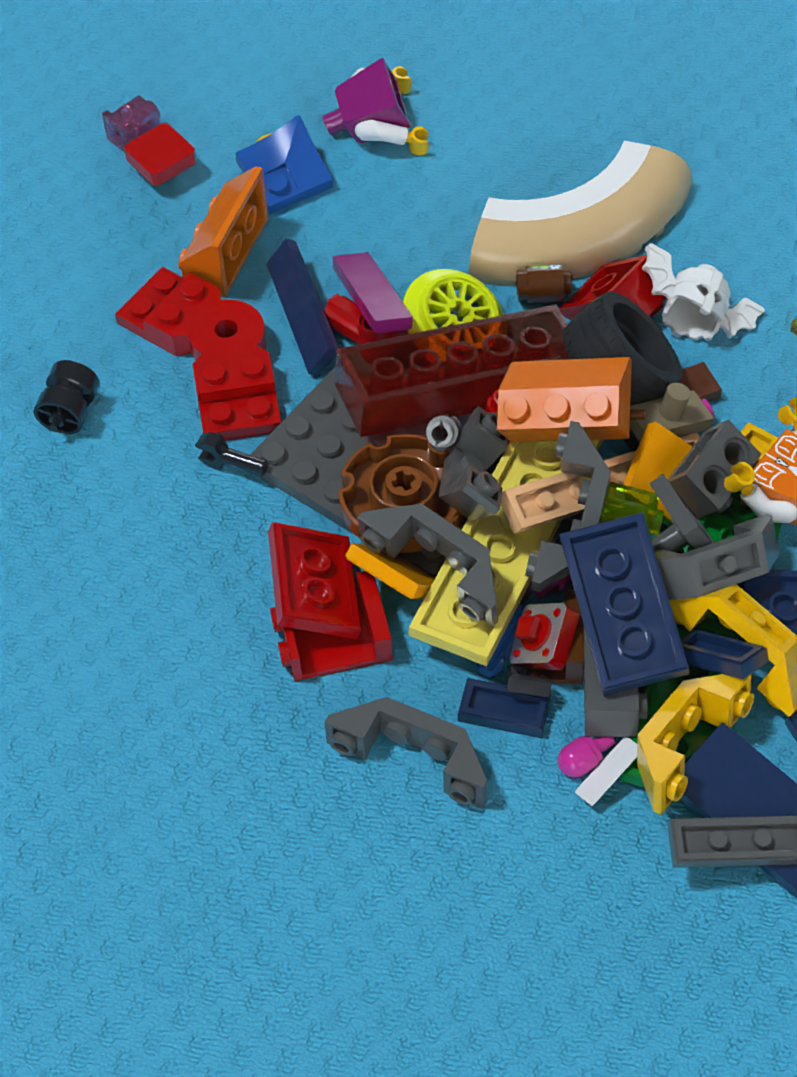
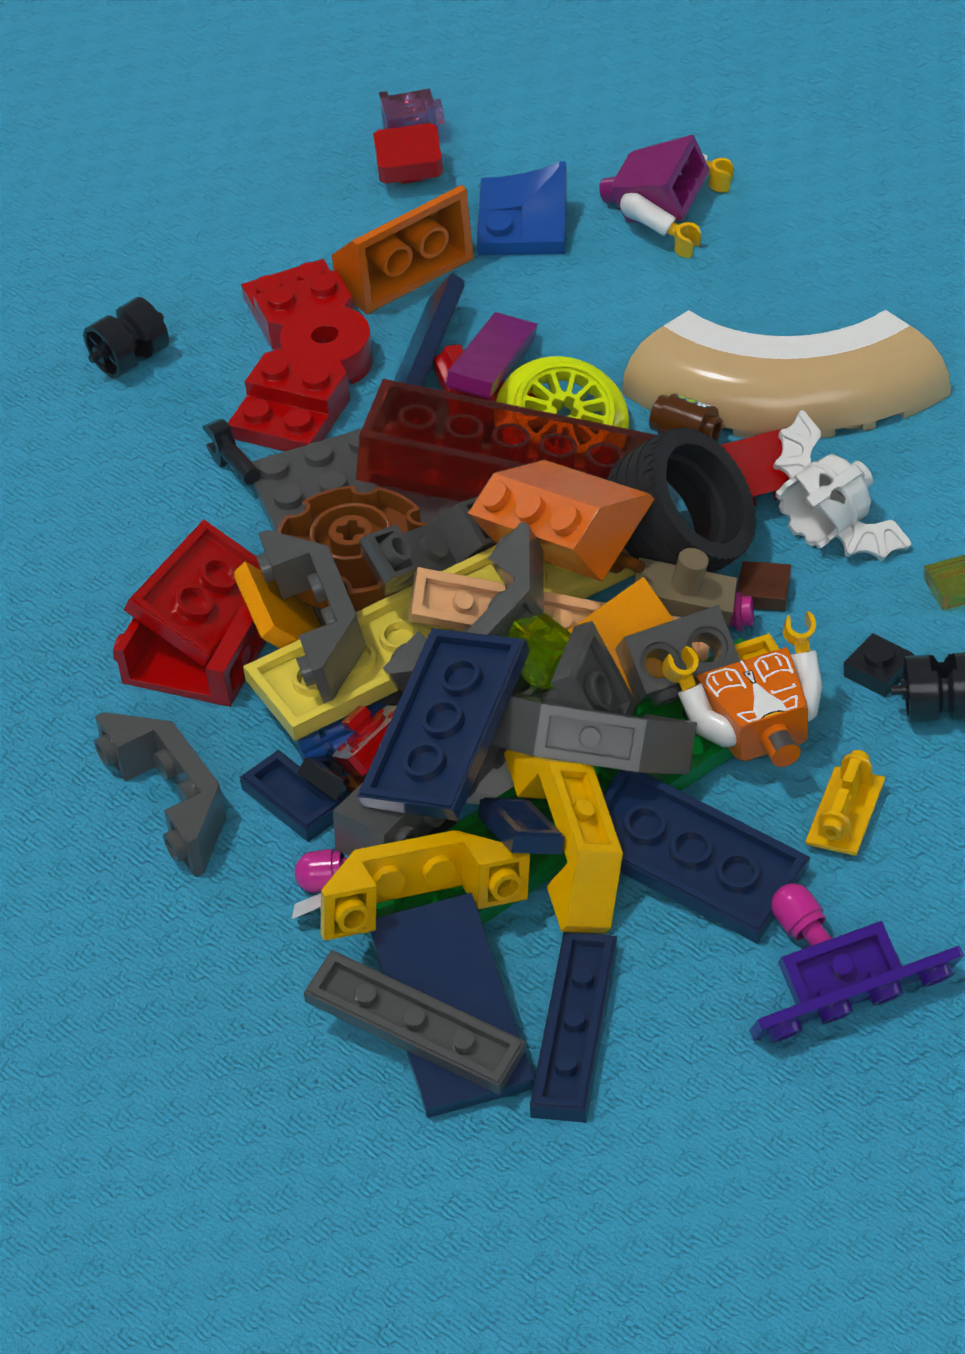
camera: 35 degrees right, 10 degrees down
(435, 434) = (430, 501): light grey pin -> none

